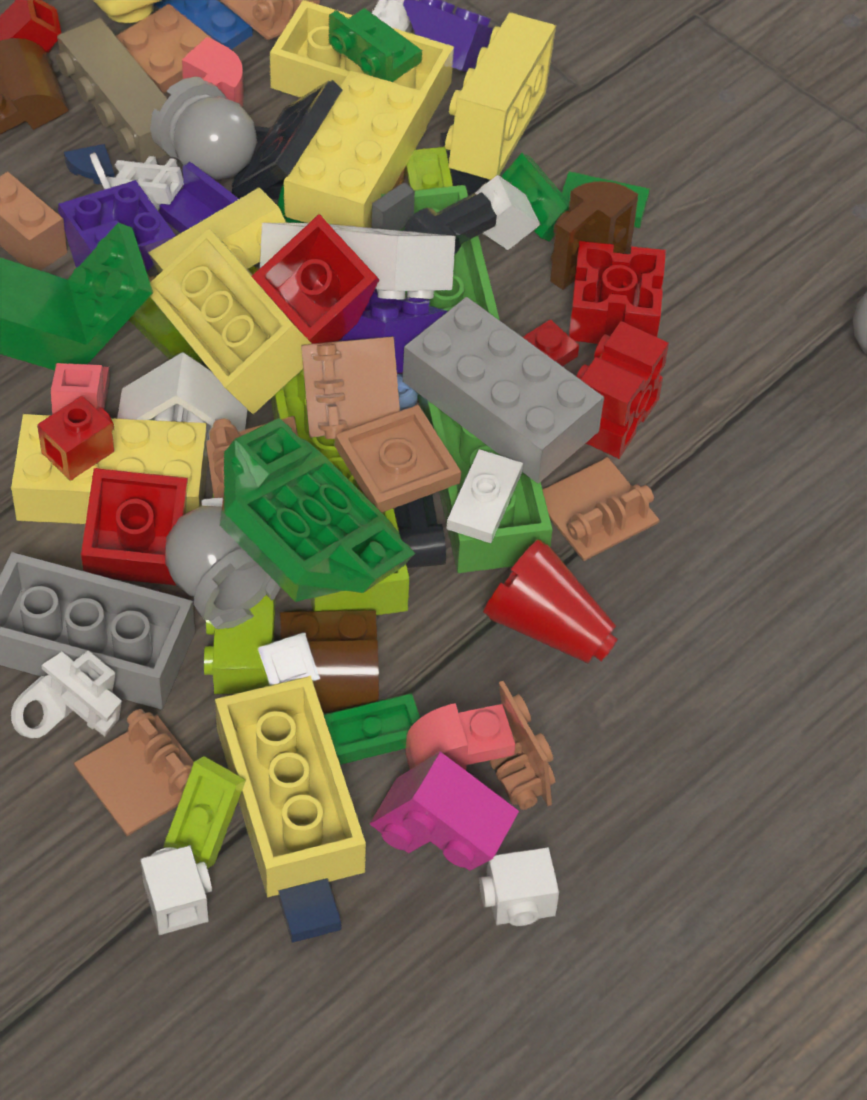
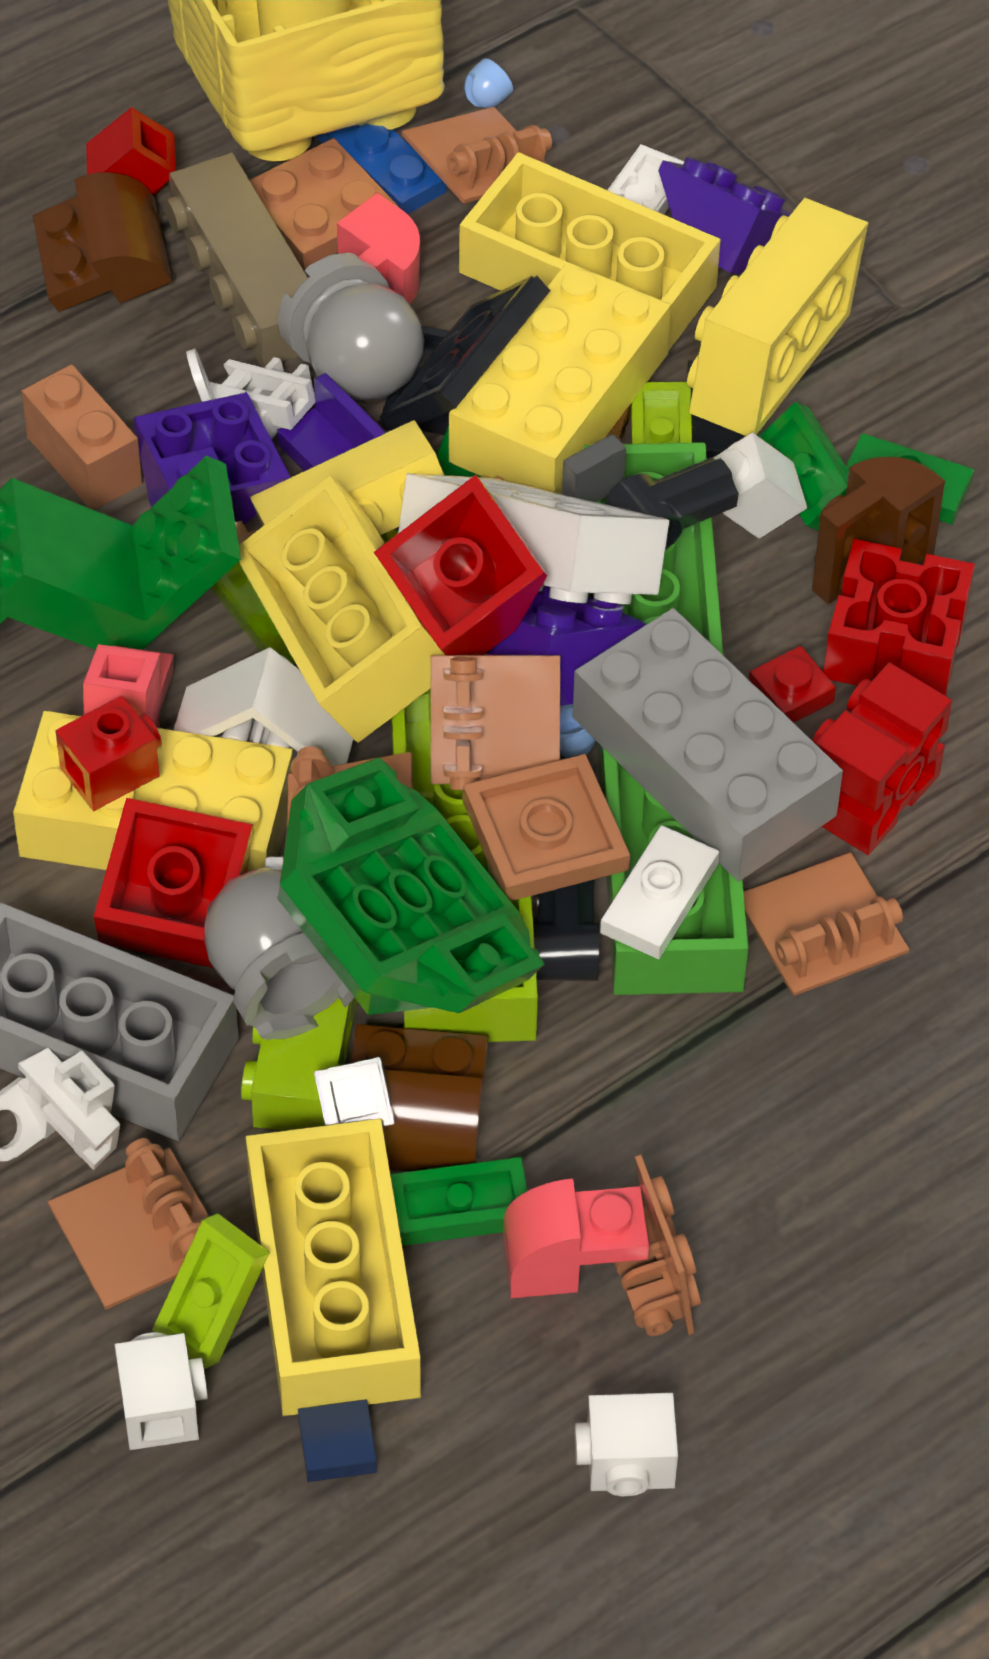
camera: 10 degrees right, 0 degrees up
(80, 163) = (174, 358): dark blue tile -> none
(373, 45) = (605, 228): green bracket -> none
(444, 807) = (540, 1323): dark pink brick -> none
(552, 606) = (733, 1056): red cone -> none

